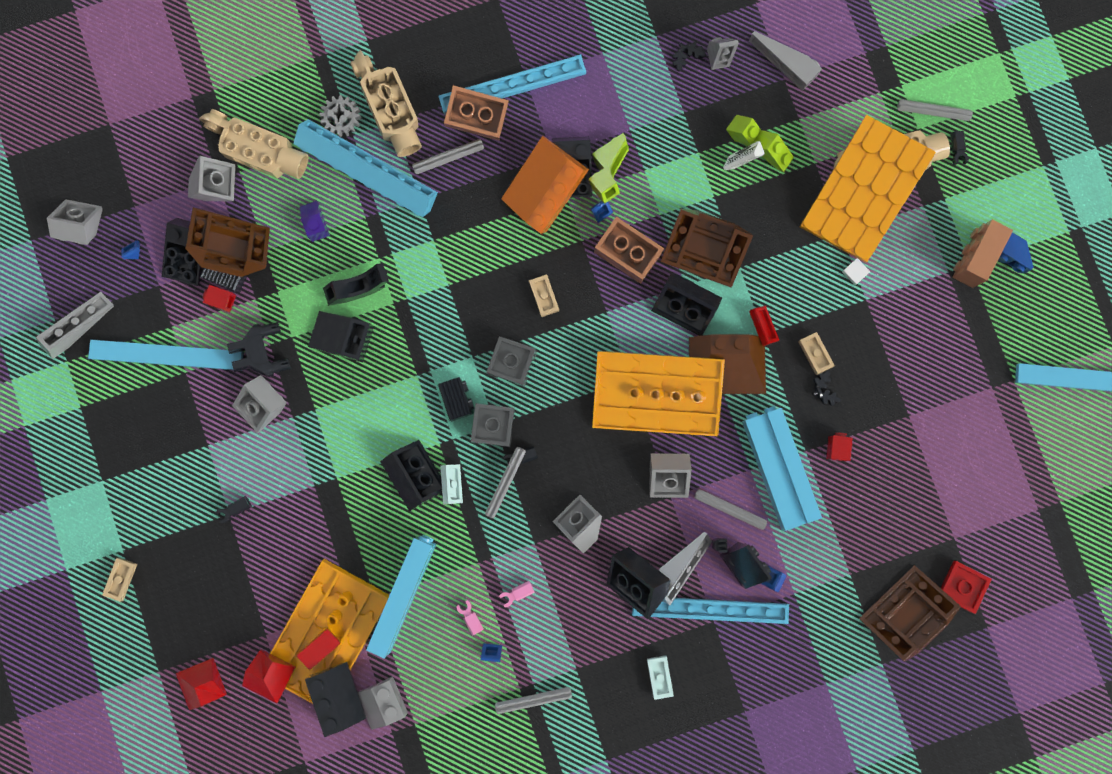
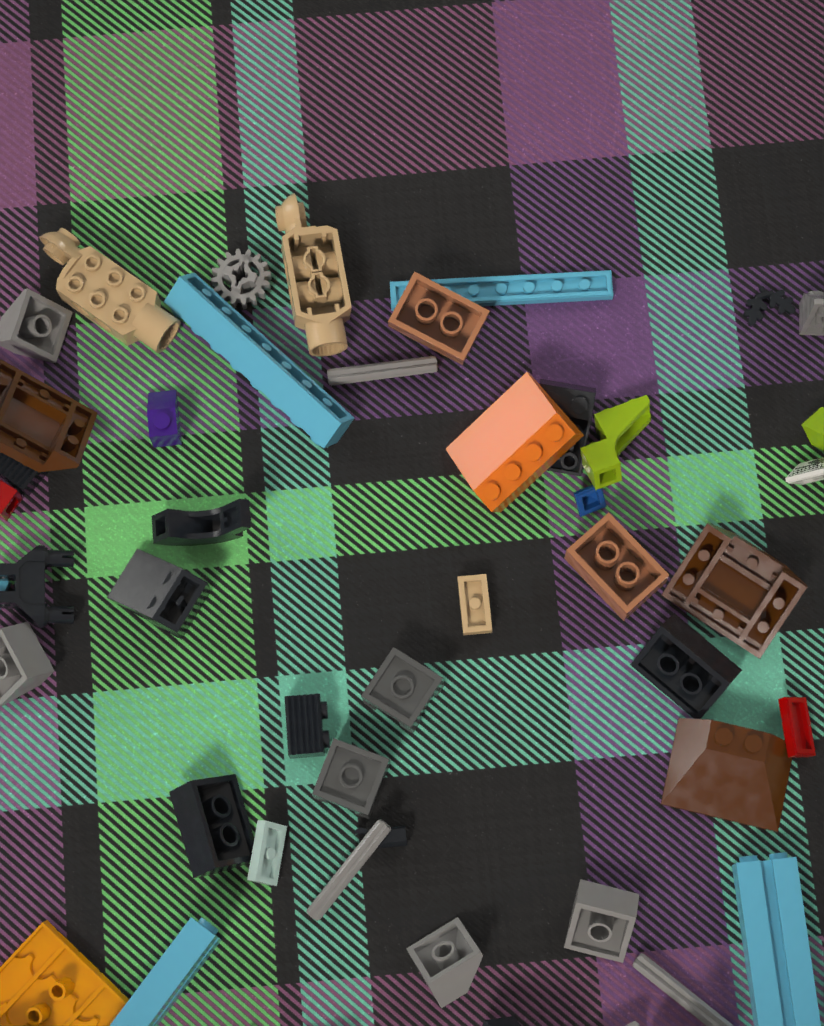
camera: 15 degrees right, 10 degrees down
(658, 393) = (612, 790): light orange piece -> none

